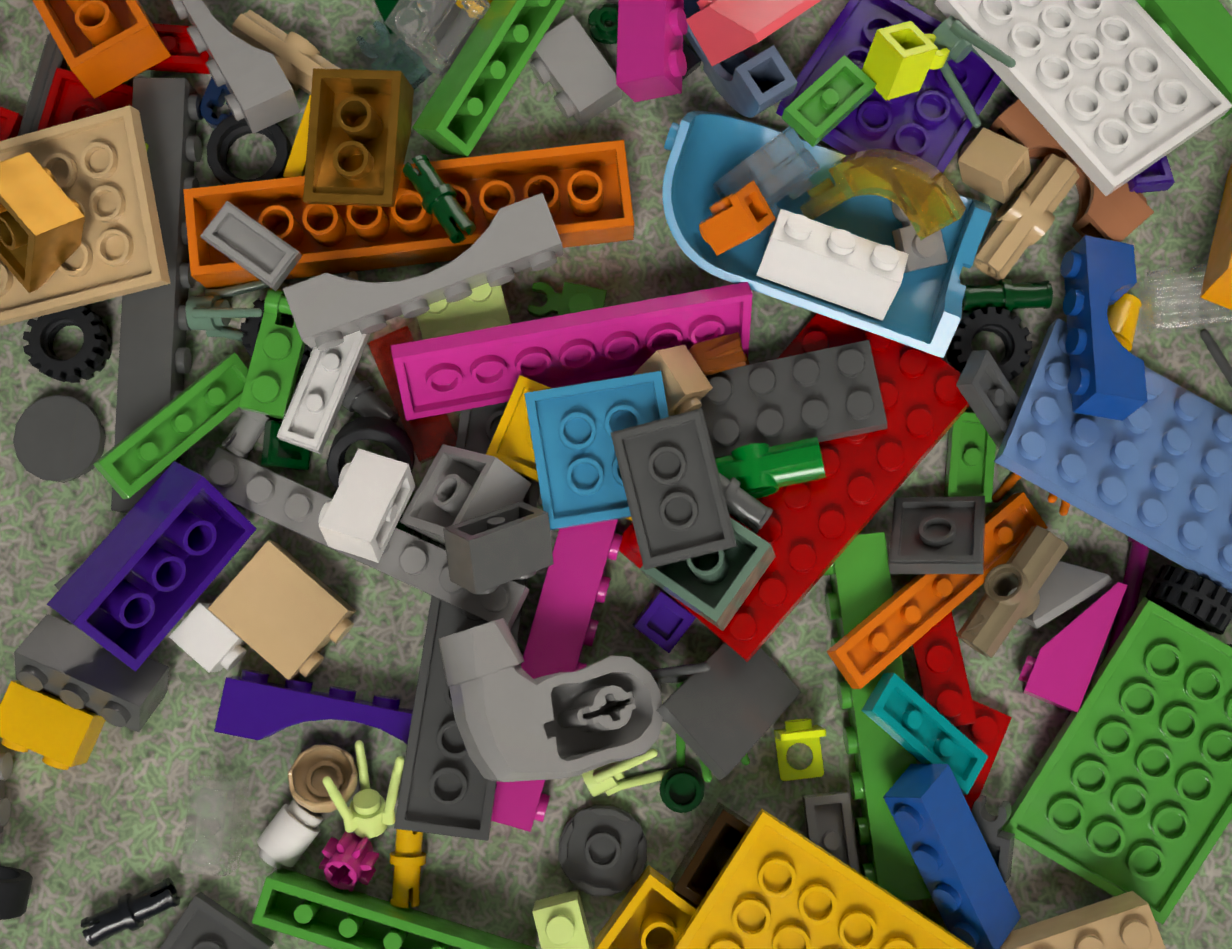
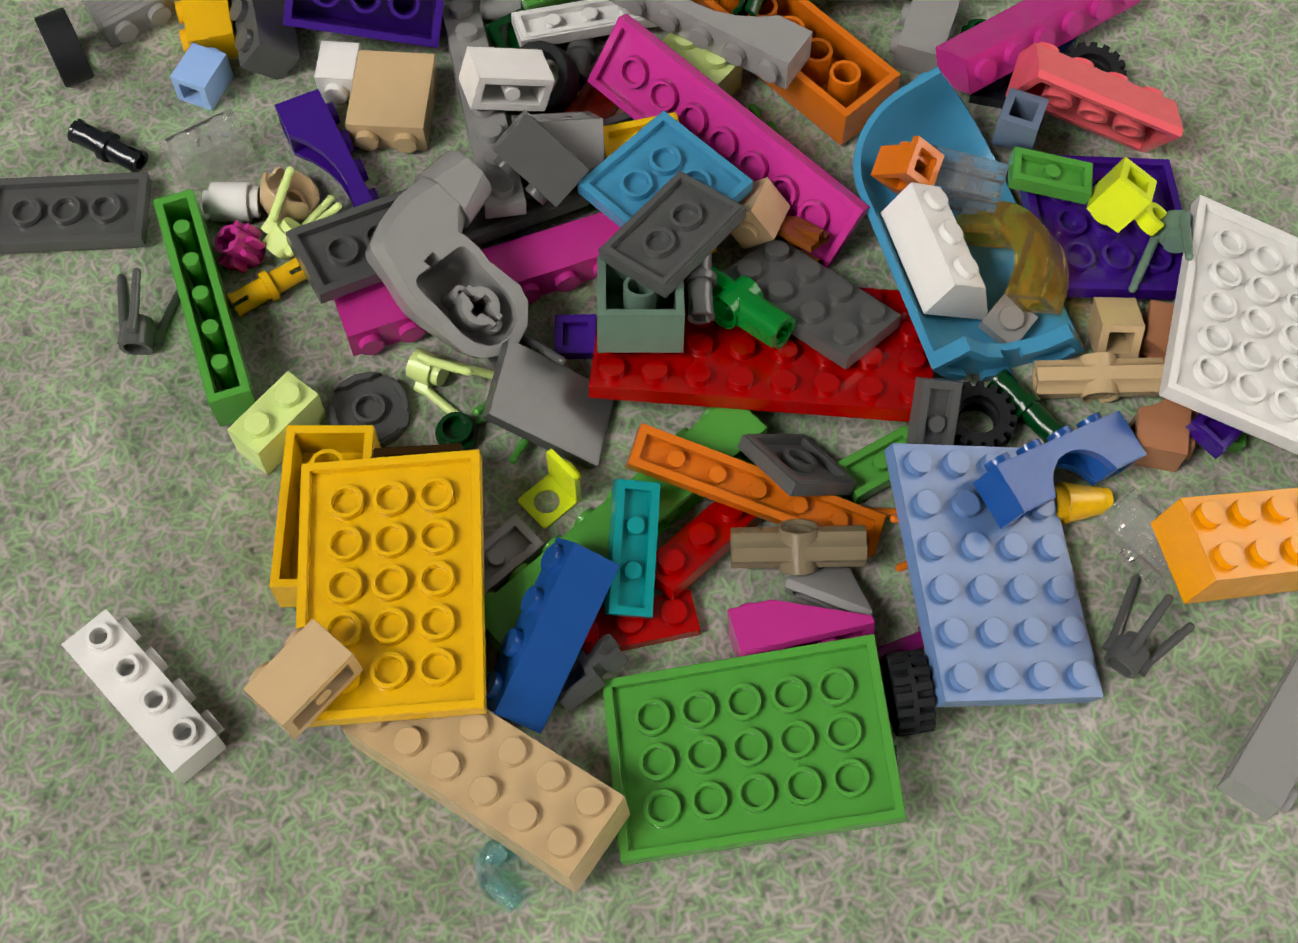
camera: 55 degrees right, 20 degrees down
(114, 770) = (202, 76): none -> light blue brick

